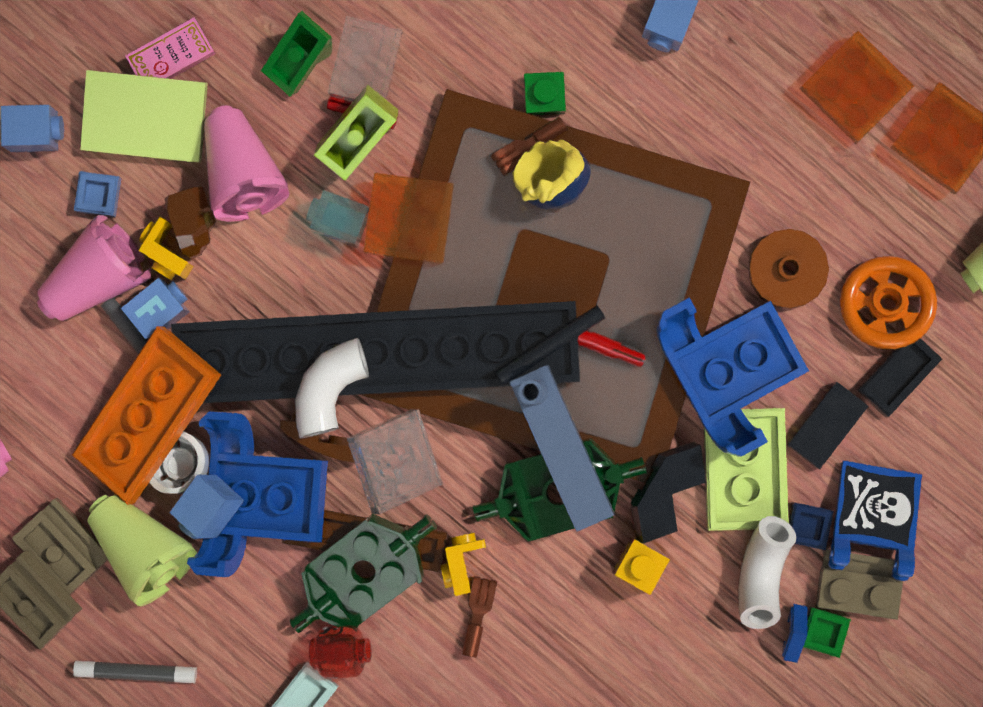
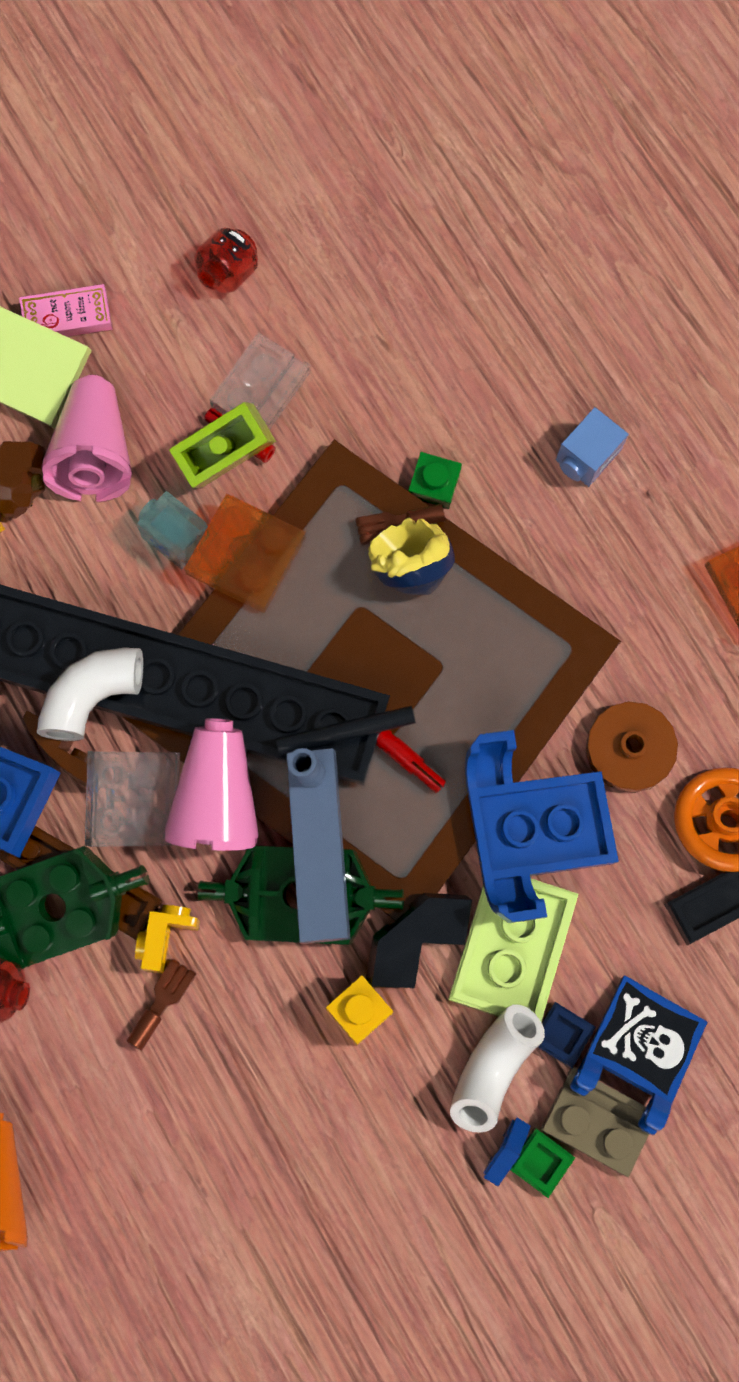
camera: 15 degrees right, 10 degrees down
(297, 54) = (193, 350): green slope -> none
(462, 435) = (214, 792): none -> bright pink cone
(827, 425) = (619, 930): black tile -> none

